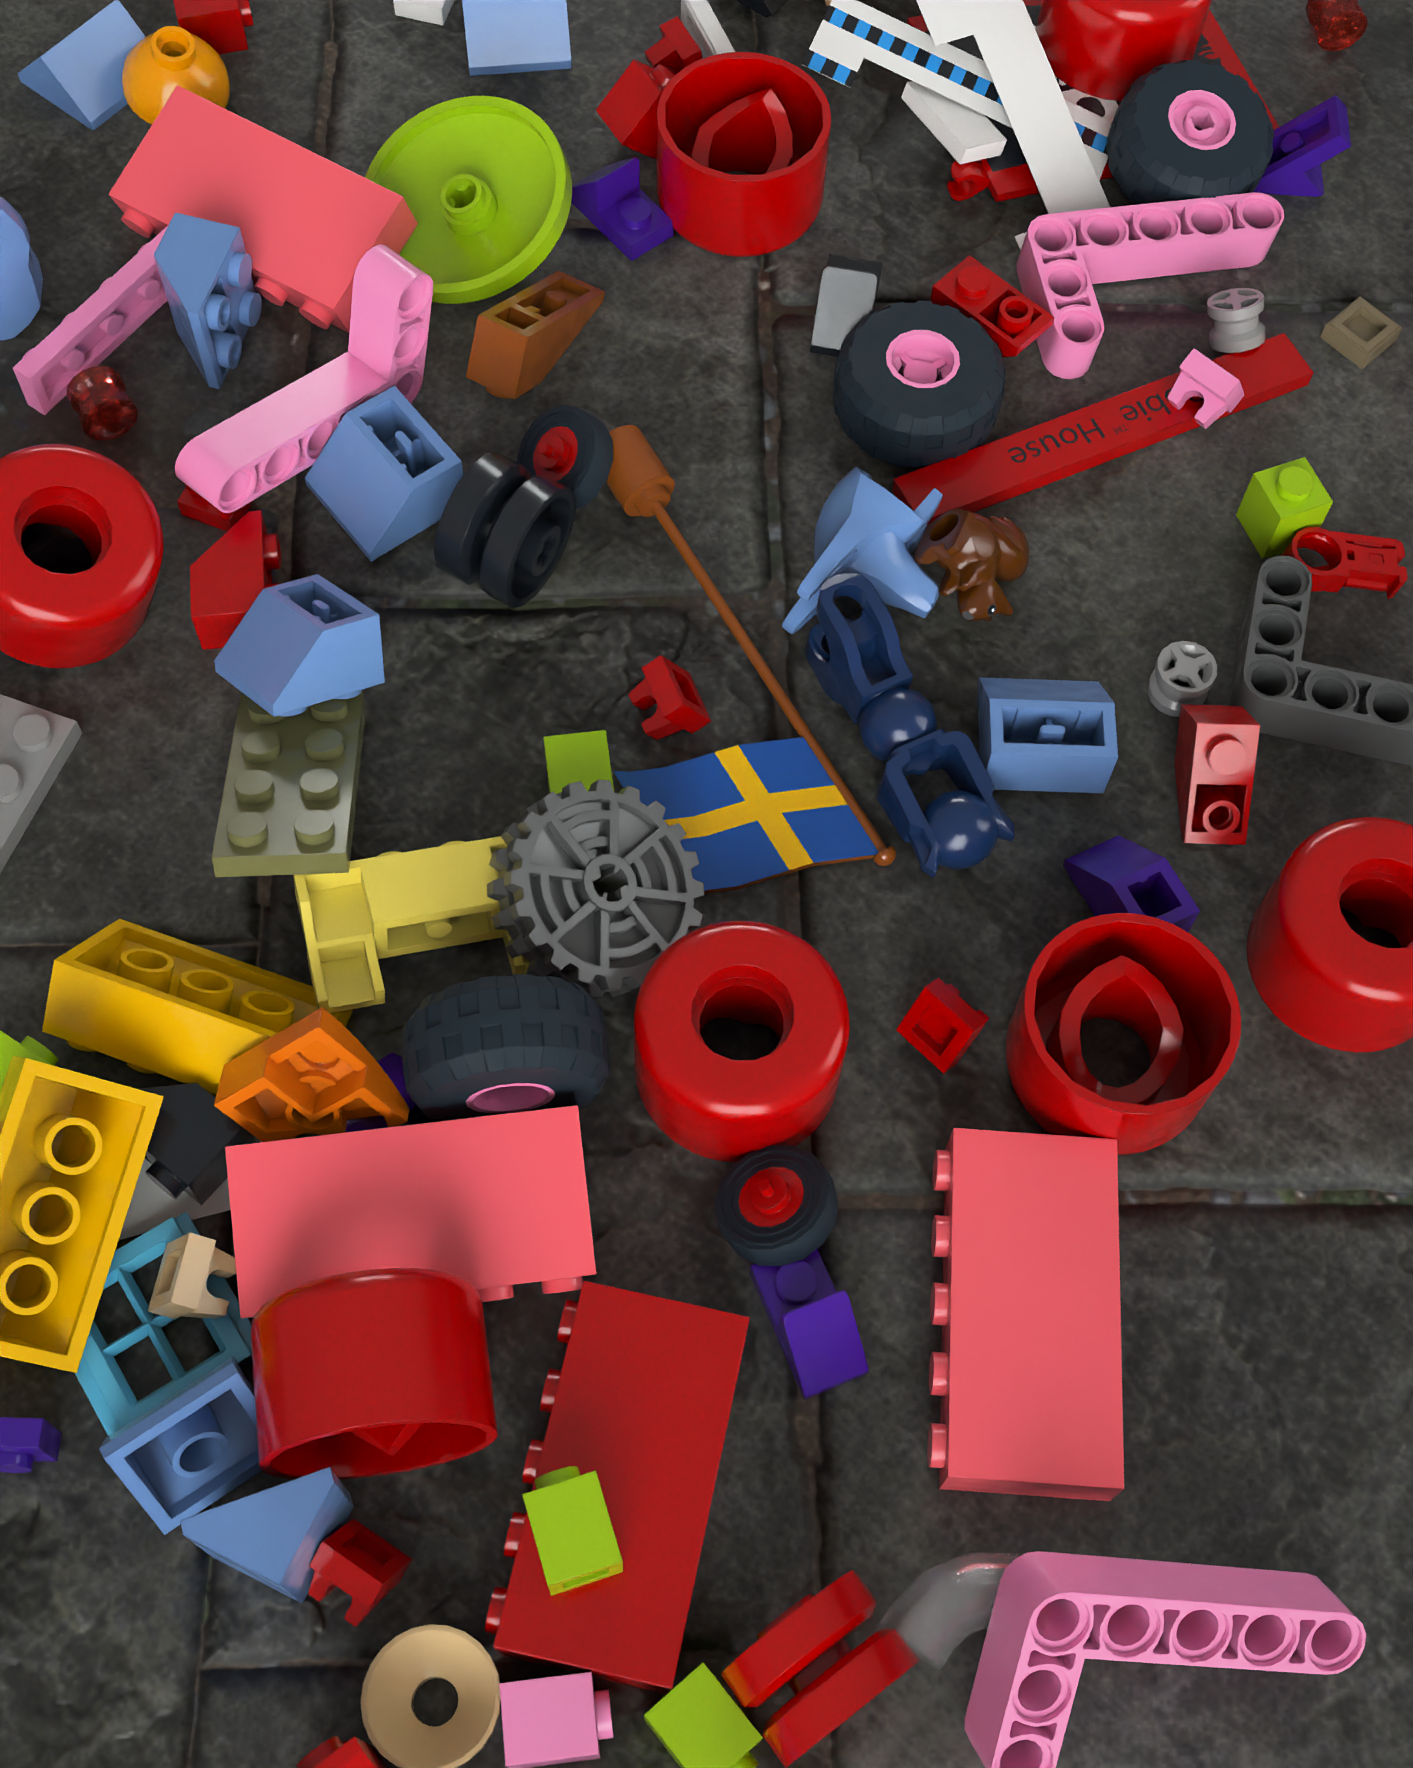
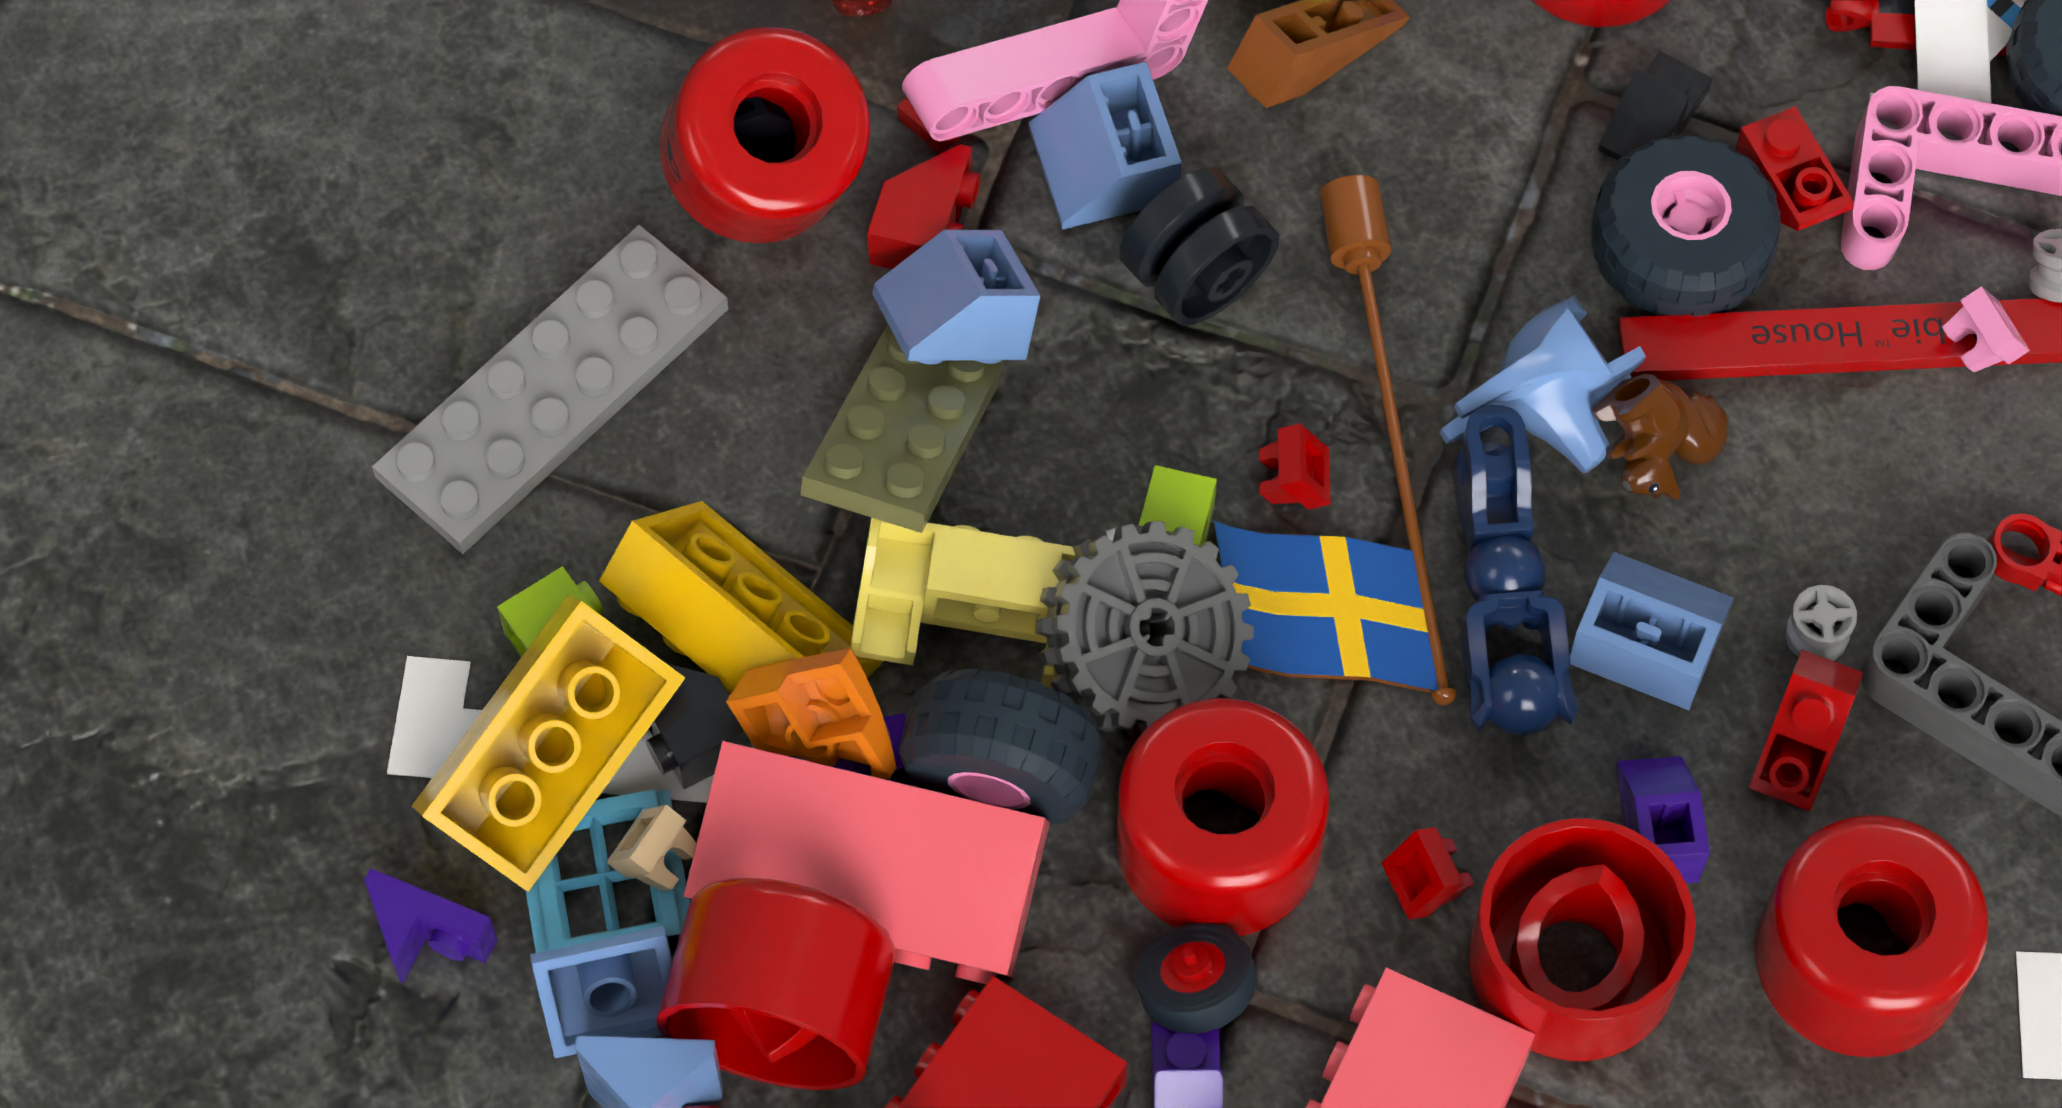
camera: 25 degrees right, 0 degrees up
(570, 449) = (1293, 185): black wheel -> none
(1281, 504) = (2010, 480): lime brick -> none

